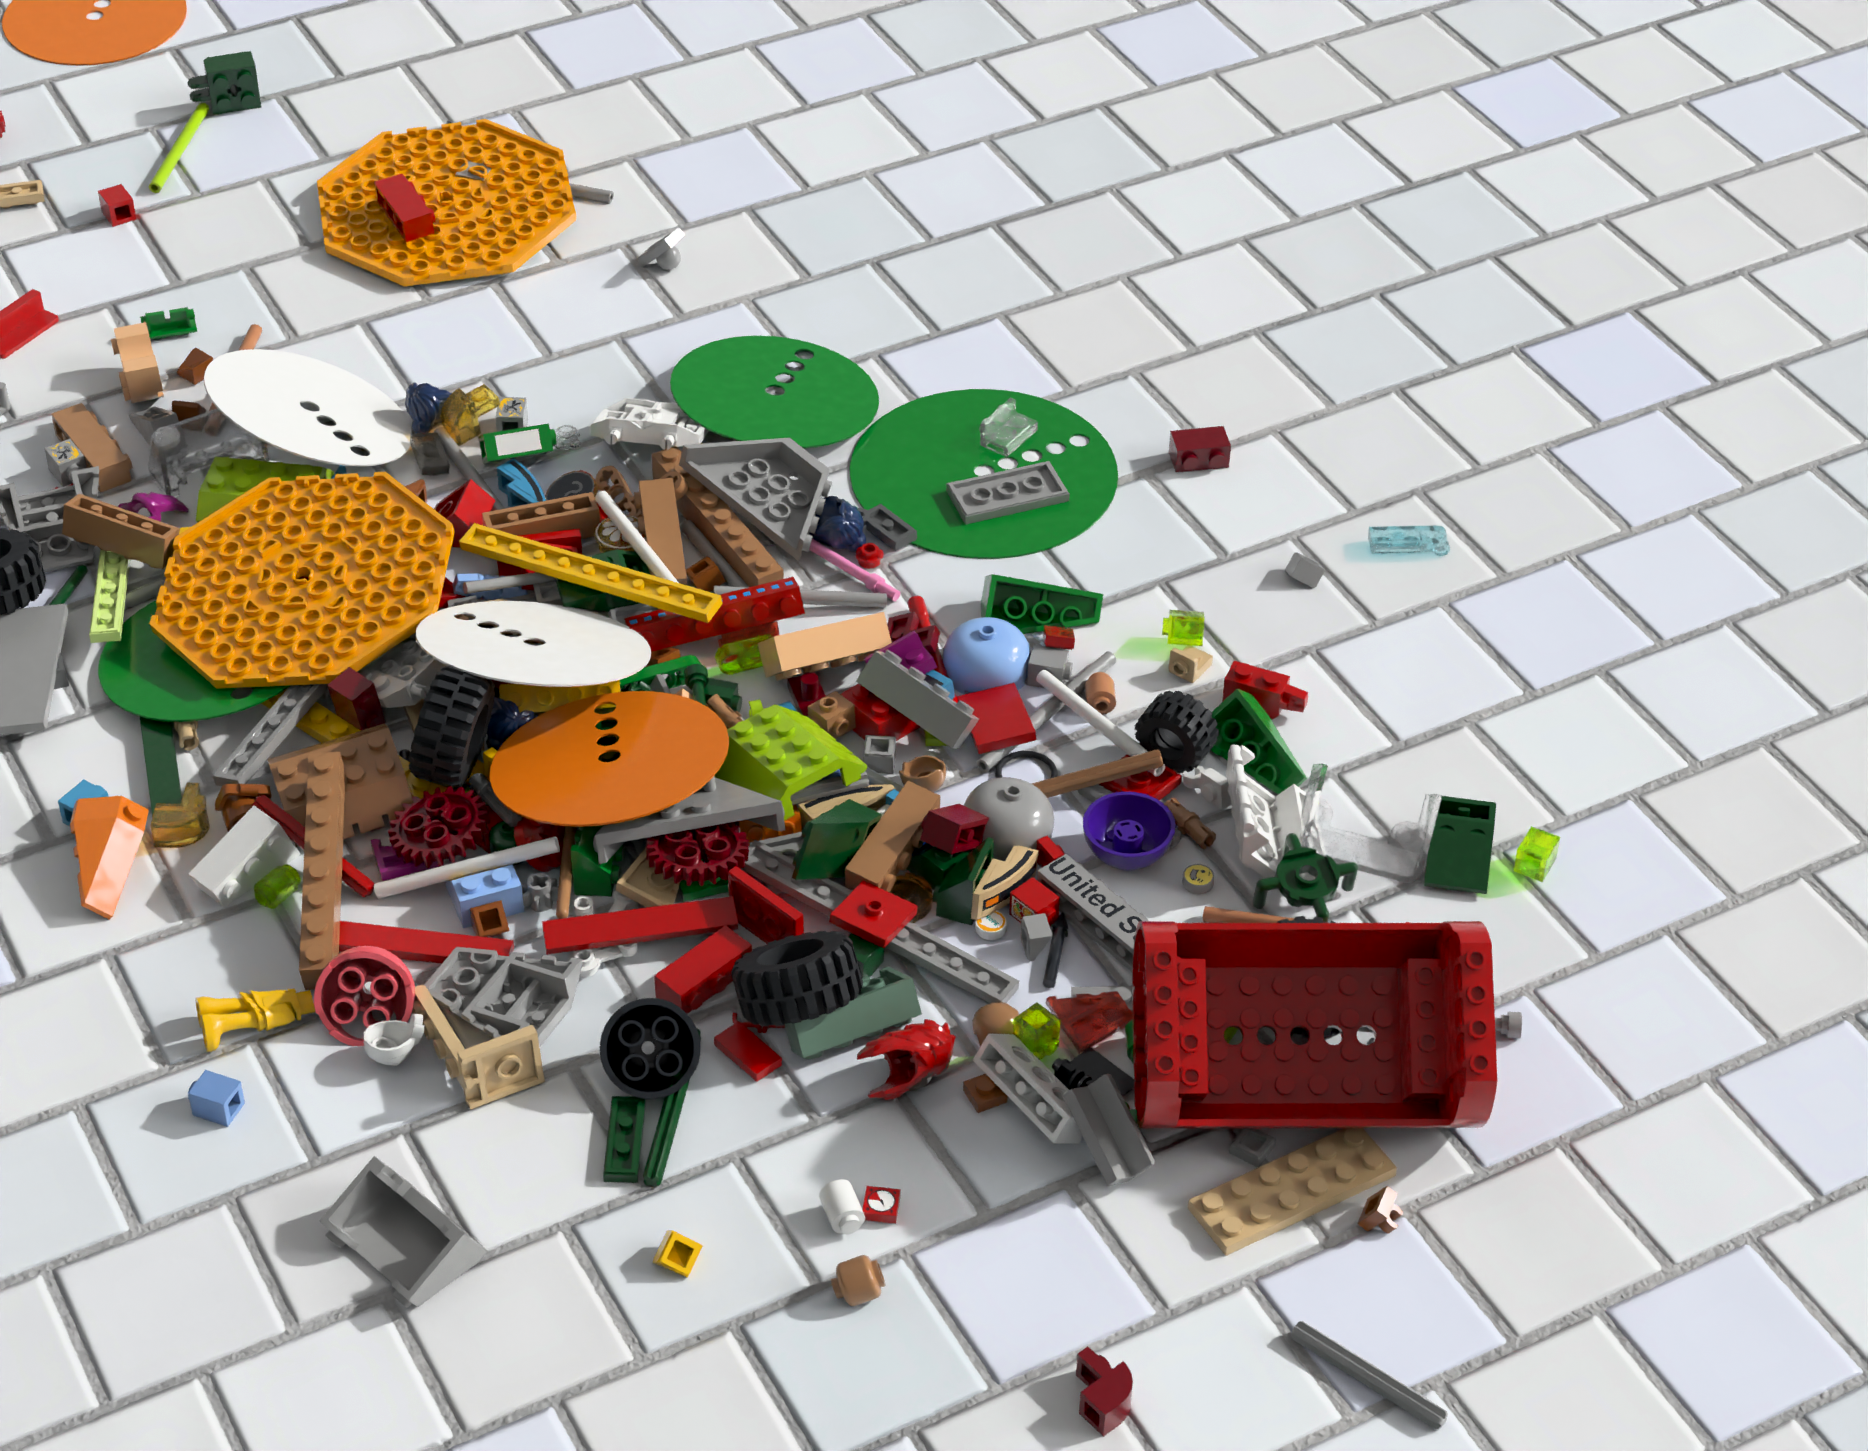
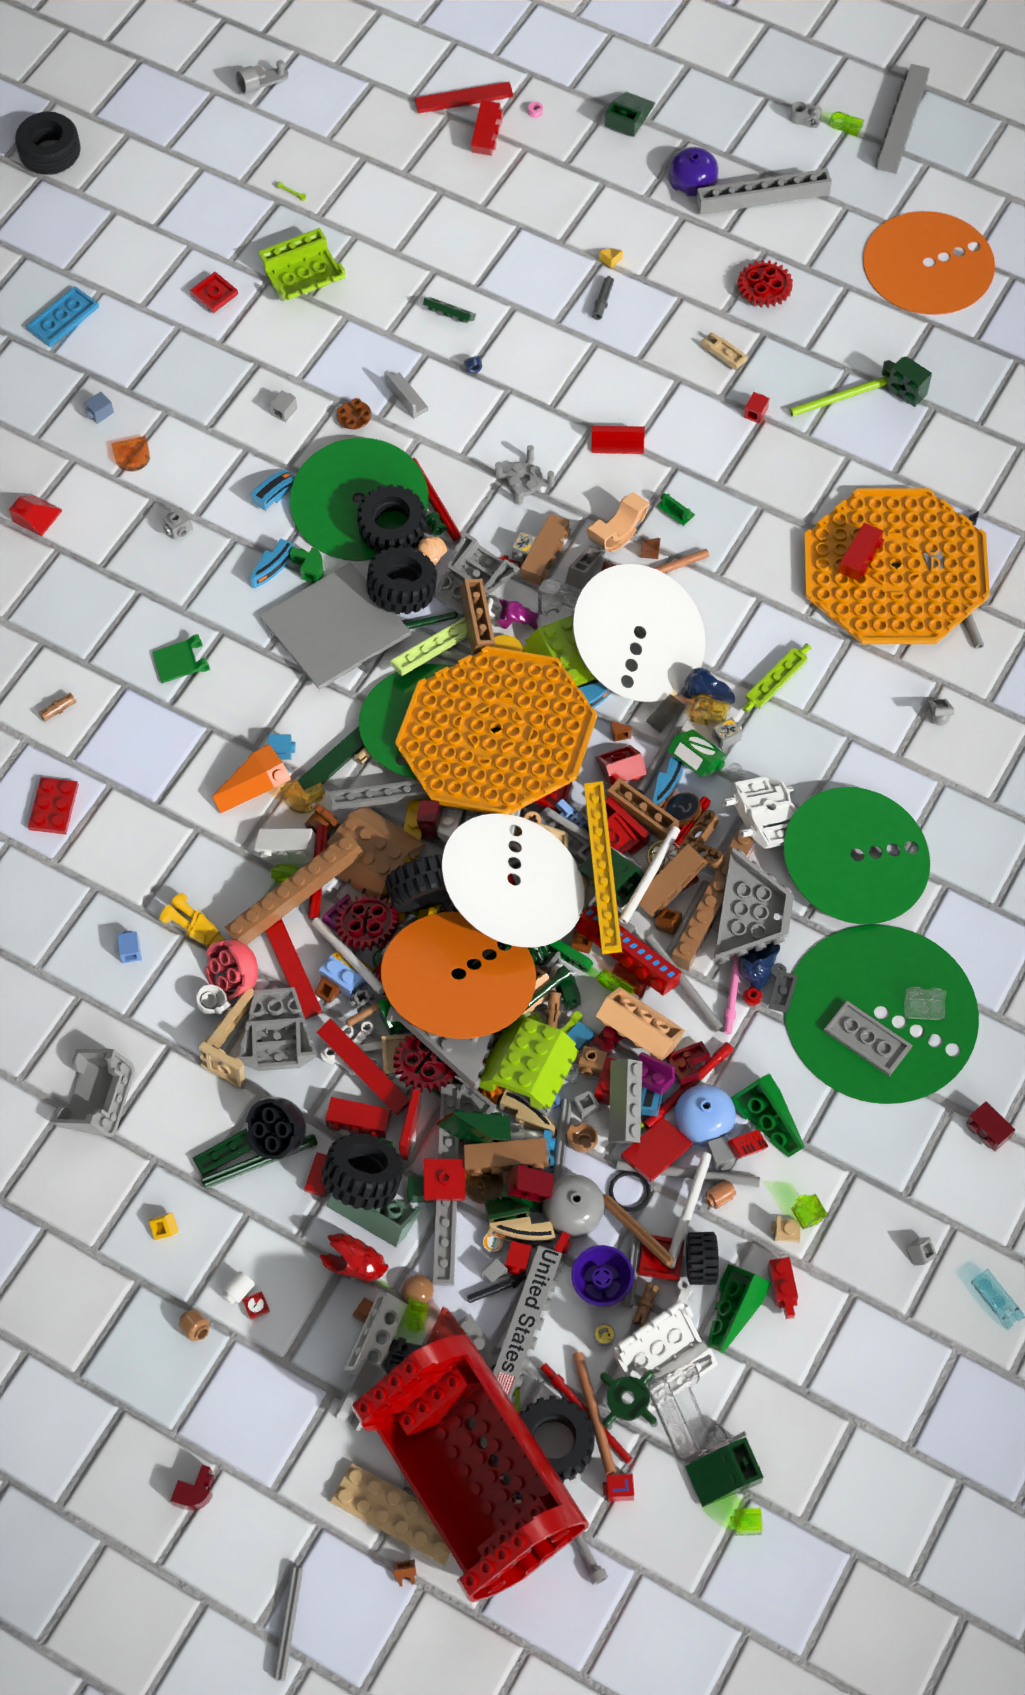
camera: 60 degrees right, 20 degrees up
(483, 350) = (776, 678): none -> lime plate

